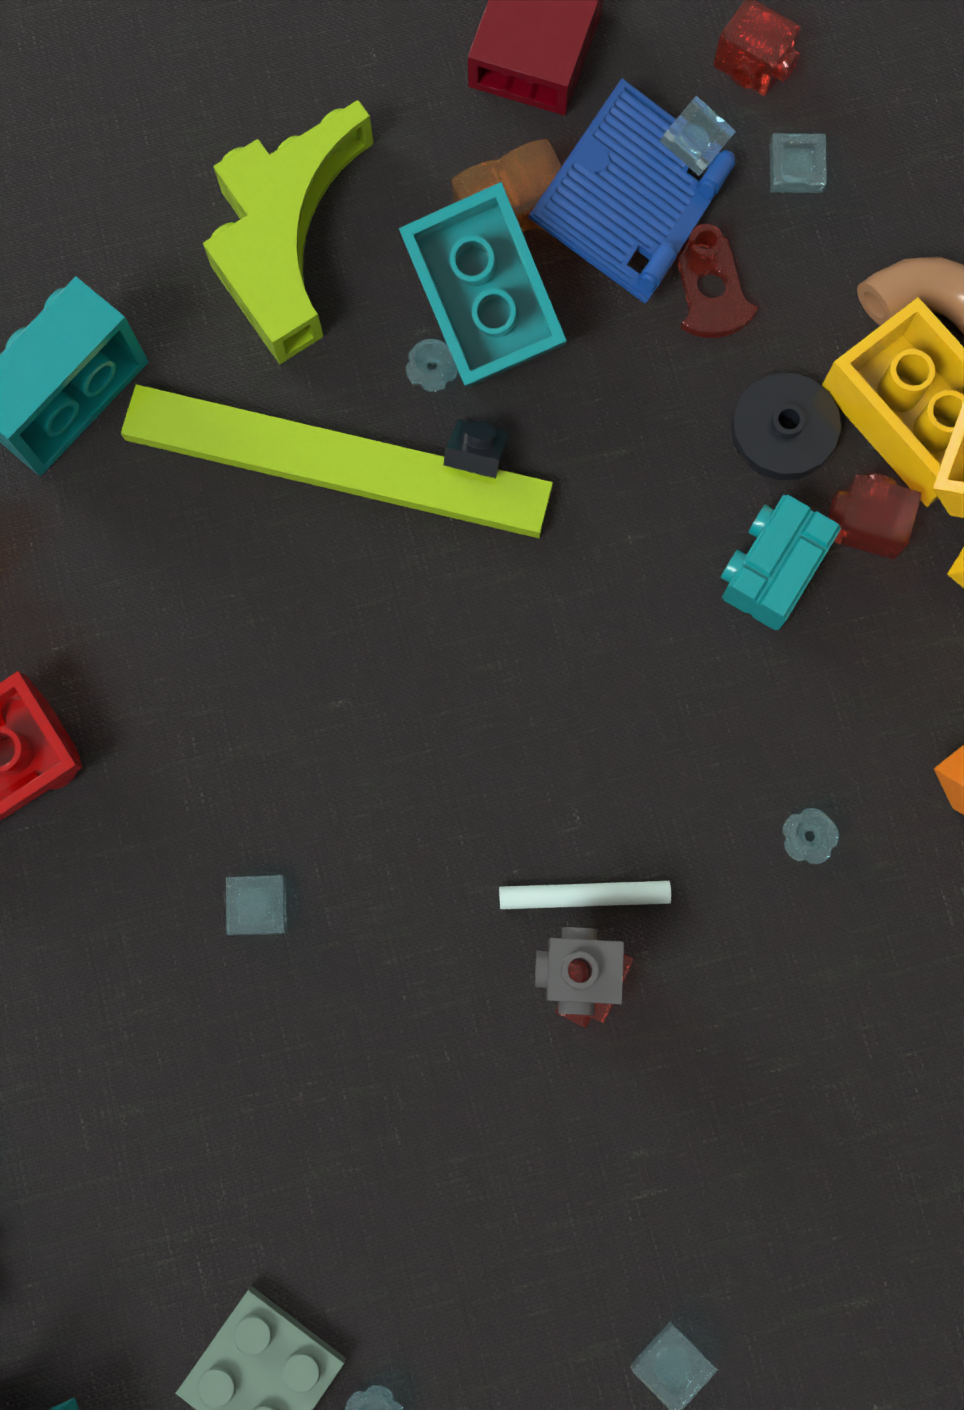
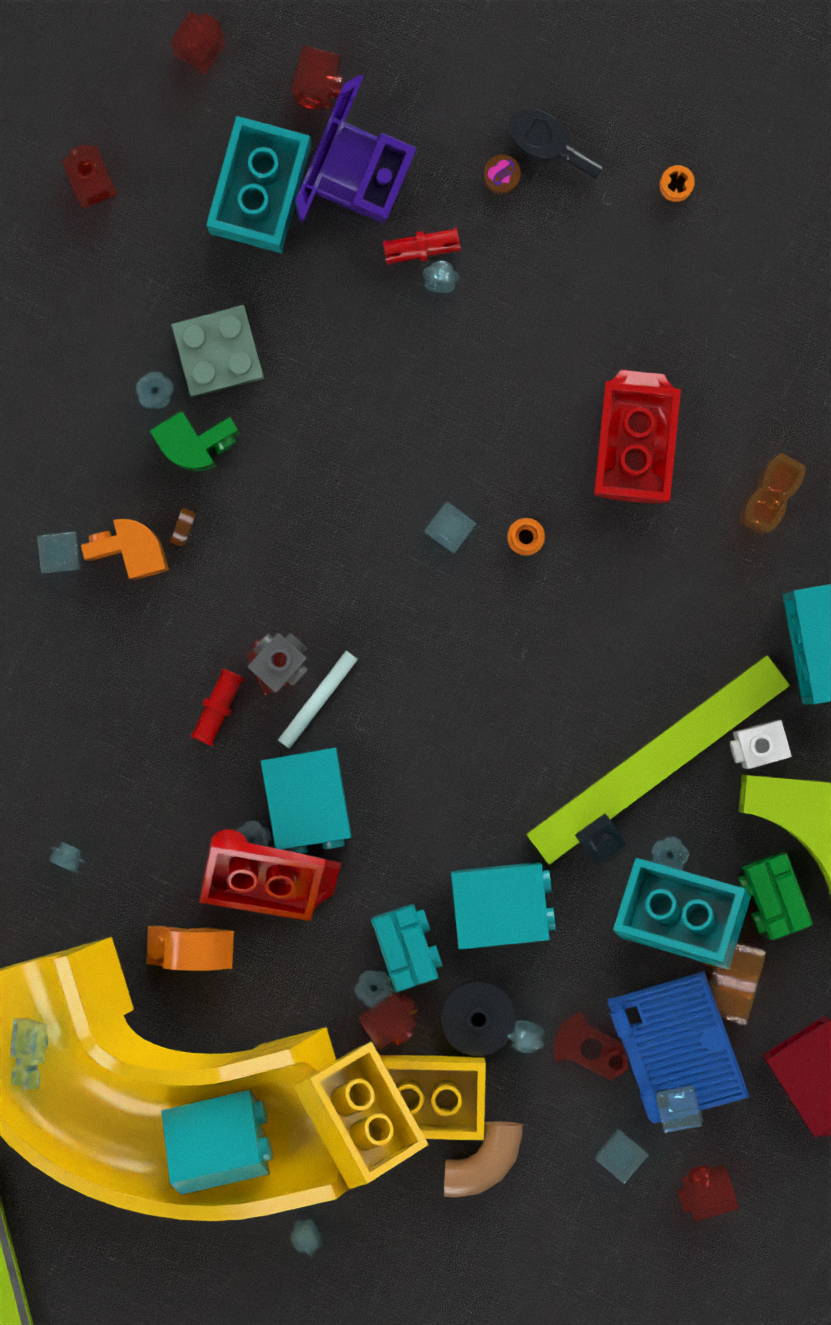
camera: 125 degrees right, 10 degrees up
(179, 808) = (532, 526): none -> orange plate
(226, 361) = (760, 744): none -> white brick
(367, 231) = (775, 896): none -> green brick
(412, 1308) = (186, 448): none -> green brick
(514, 1234) = (182, 527): none -> reddish brown tile
(580, 1276) = (136, 542): none -> orange brick
(642, 495) = (502, 905): none -> teal brick
(695, 1006) = (217, 707): none -> red pin
(713, 809) = (306, 800): none -> teal brick
(759, 357) = (526, 1036): none -> clear light blue plate
(848, 782) = (265, 878): none -> red slope
(867, 556) = (369, 978): none -> clear light blue plate

